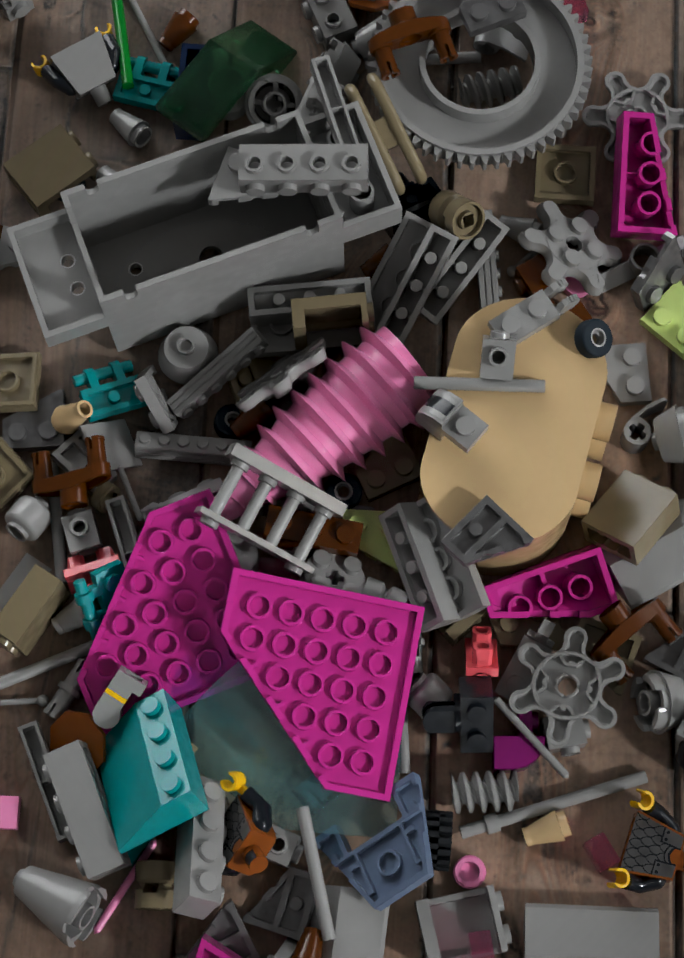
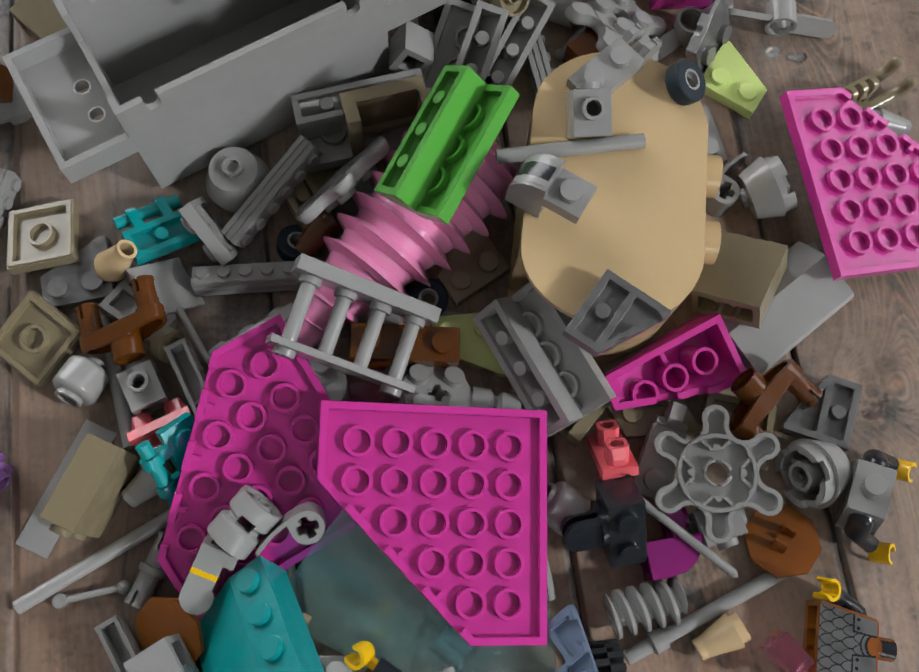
camera: 20 degrees left, 0 degrees up
(147, 667) = (237, 534): none -> light grey wheel
(195, 664) = (293, 520): none -> light grey panel
(365, 256) = (411, 48): none -> light grey brick
(373, 364) = (446, 143): none -> bright green slope
(621, 758) = (782, 543): none -> dark orange piece

